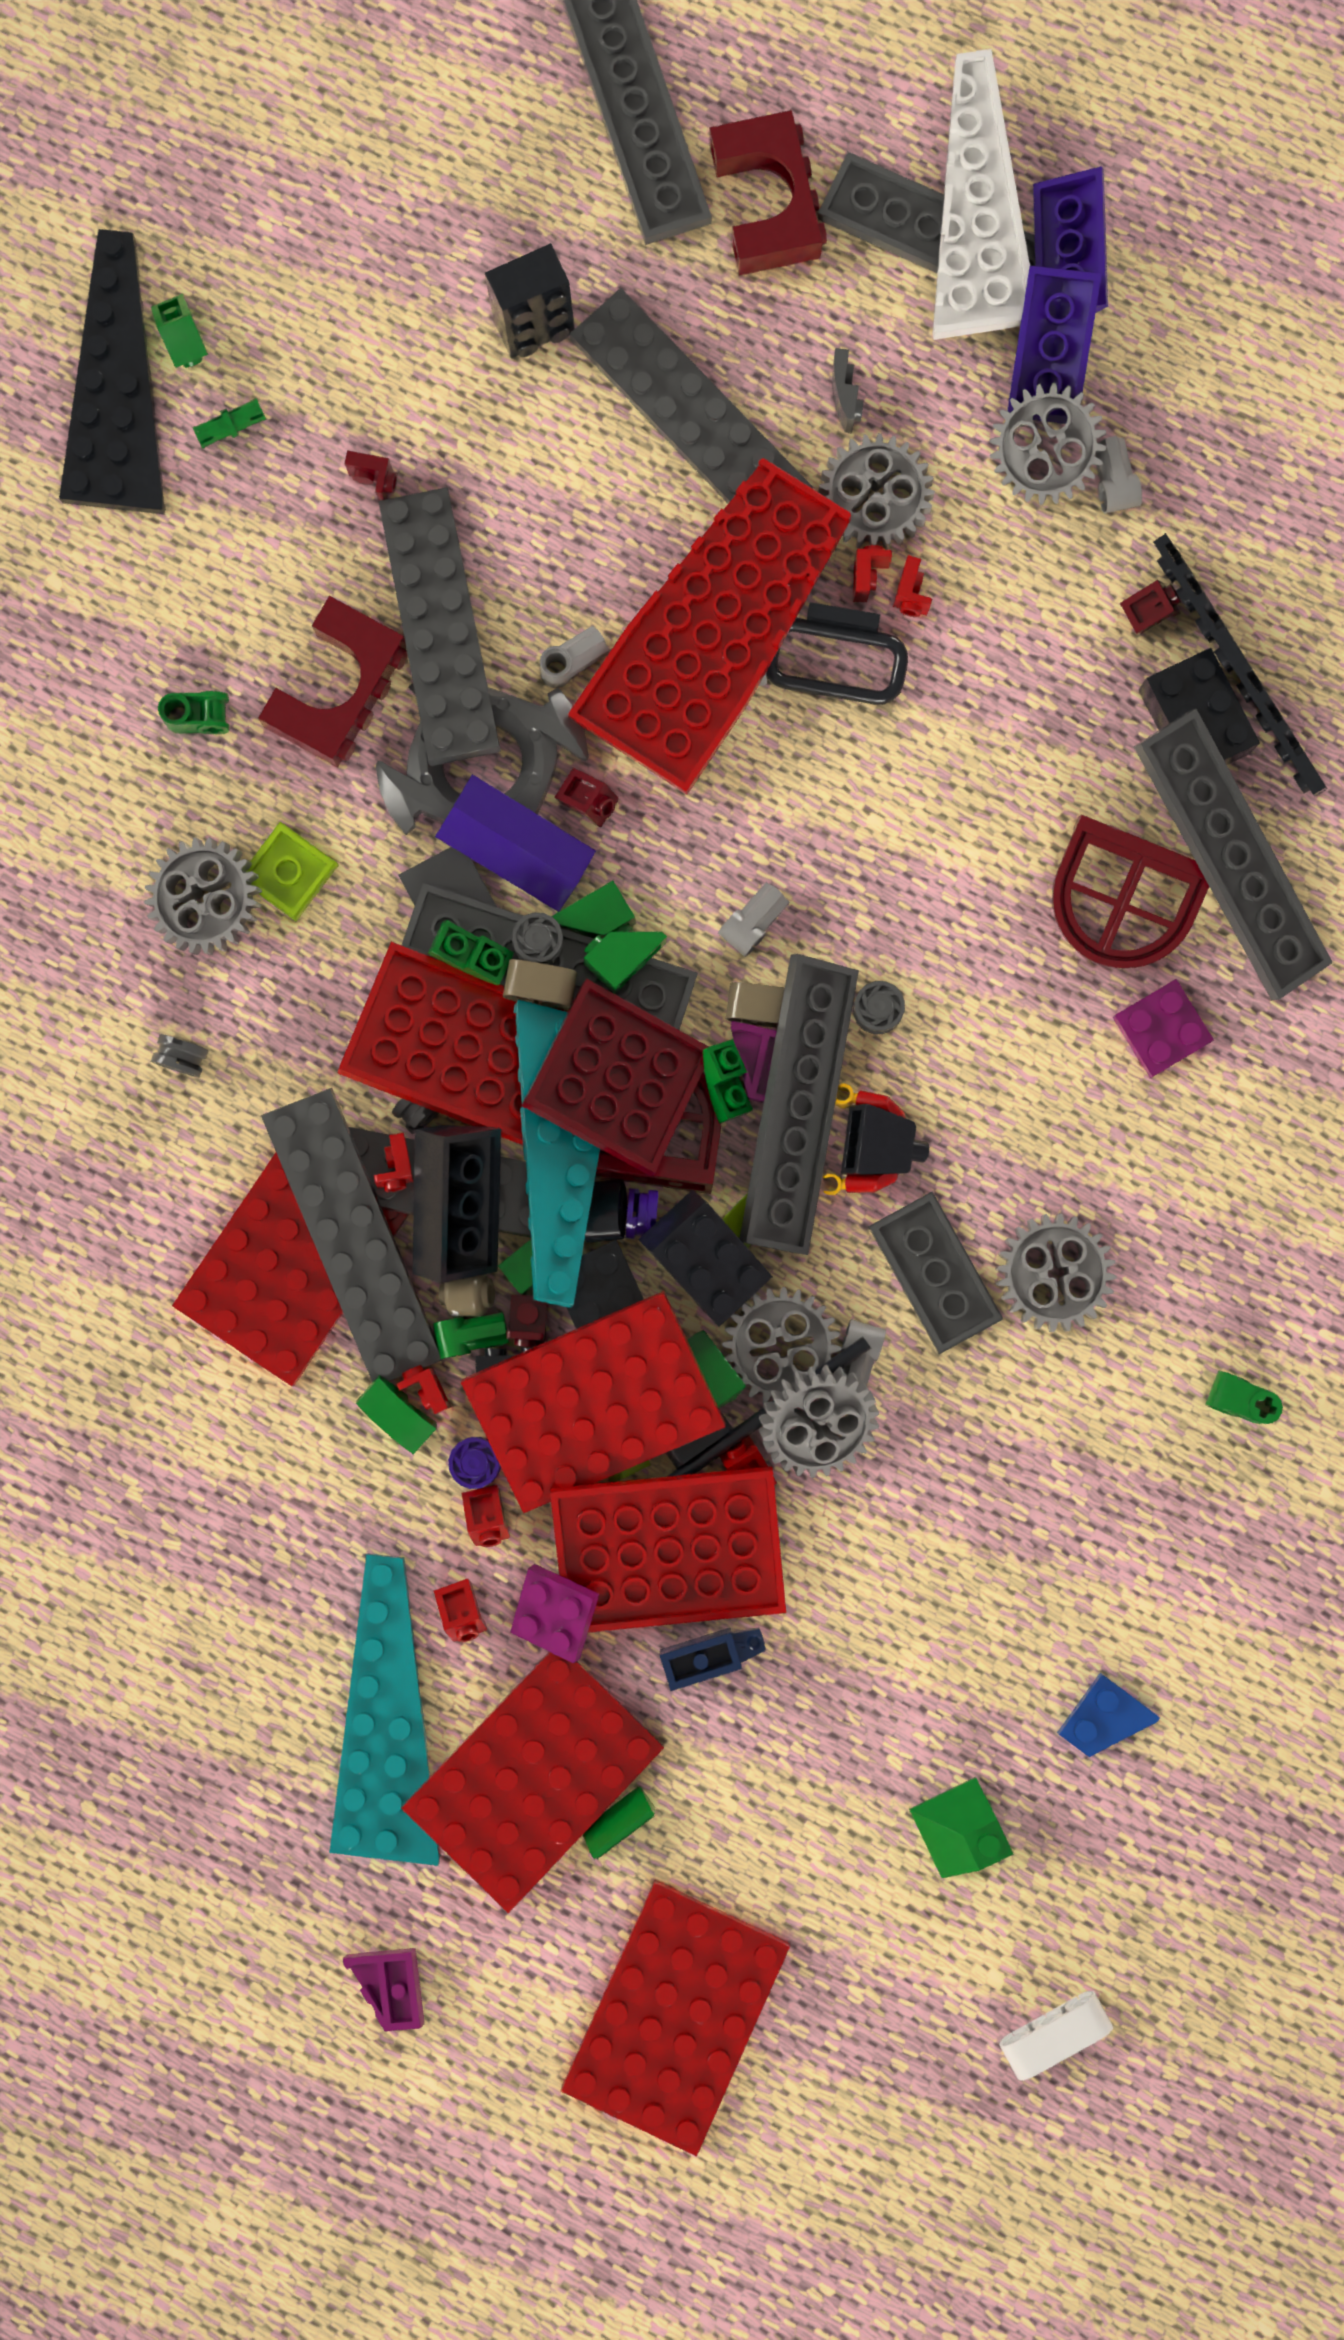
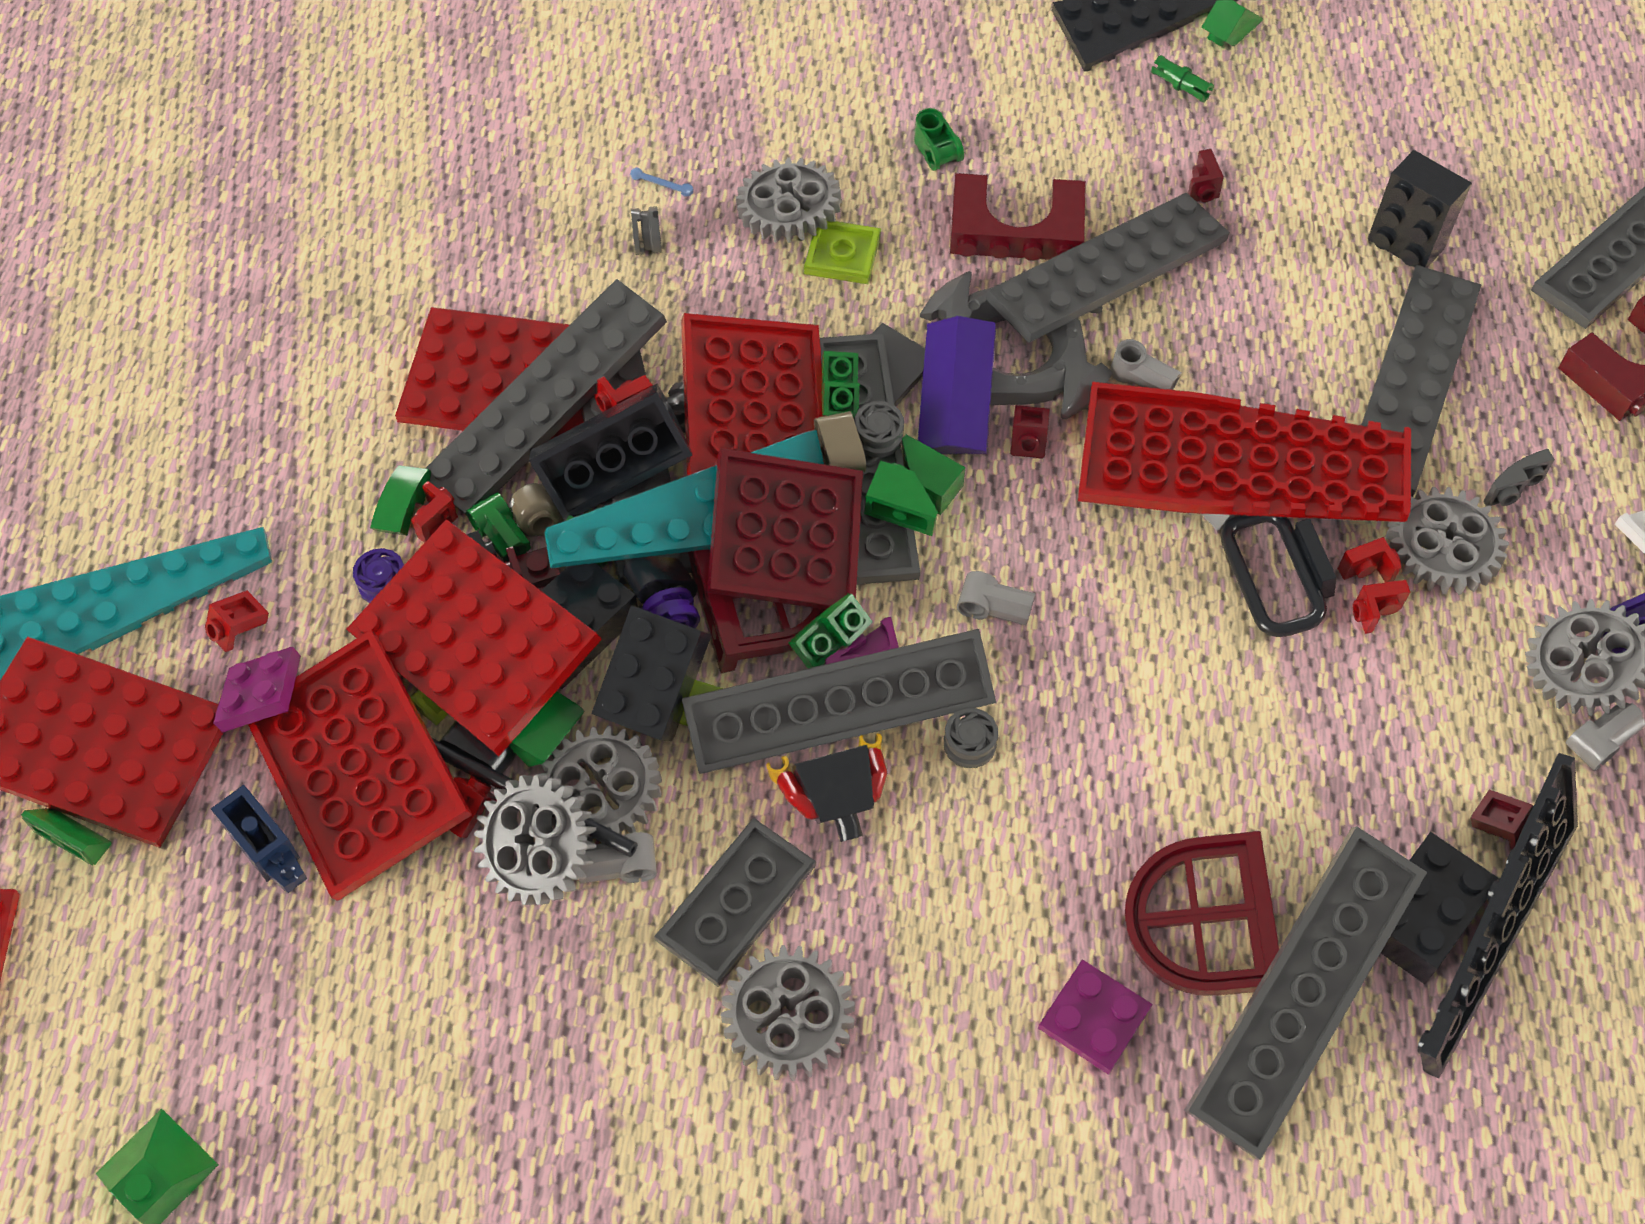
camera: 60 degrees right, 25 degrees down
(131, 992) = (685, 189): none -> medium blue hinge
(485, 1516) = (332, 602): red bracket -> none
(754, 1004) = (915, 624): dark tan beam -> none

